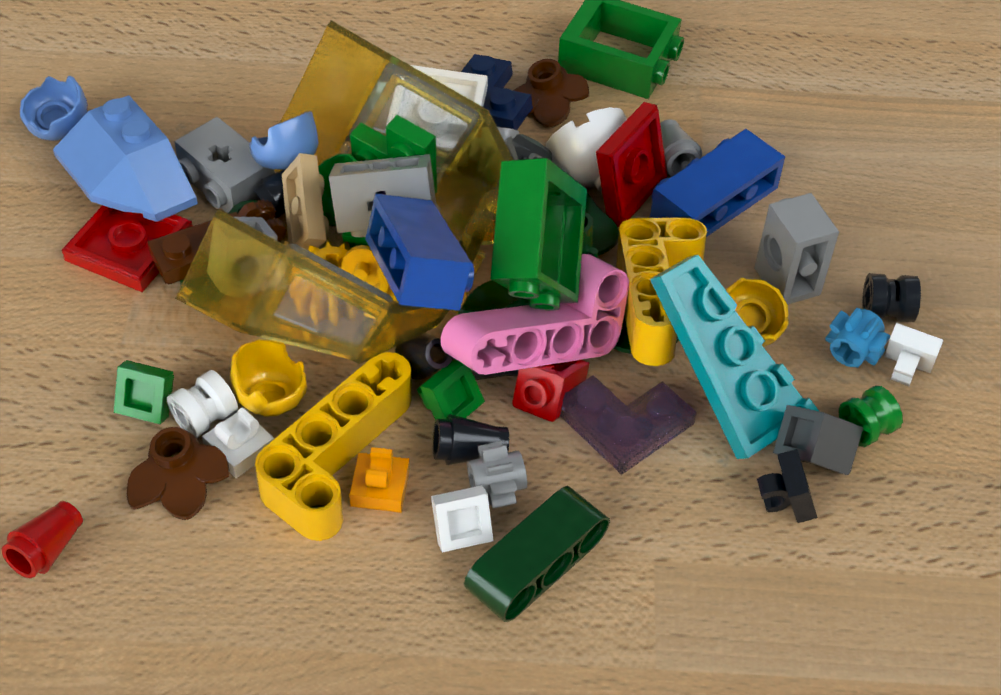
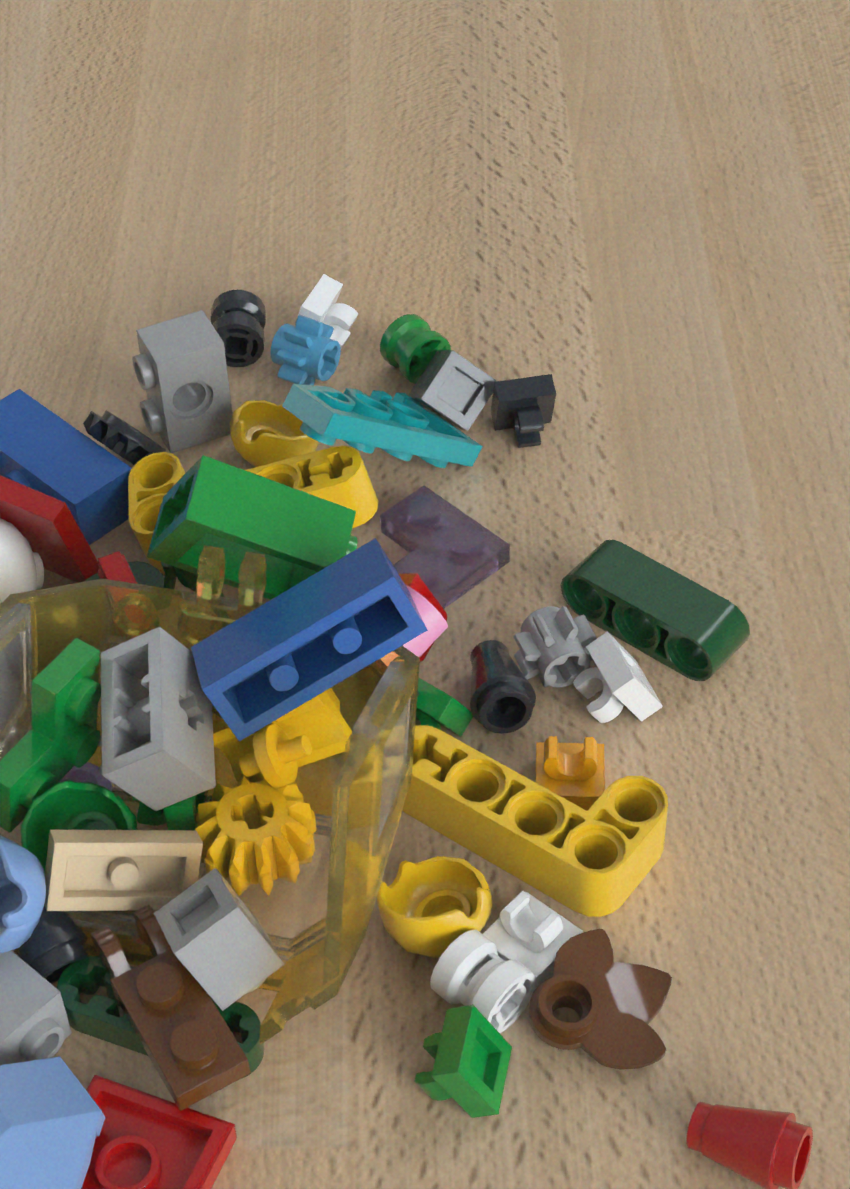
camera: 90 degrees left, 5 degrees down
(748, 225) = (120, 437): none -> black gear

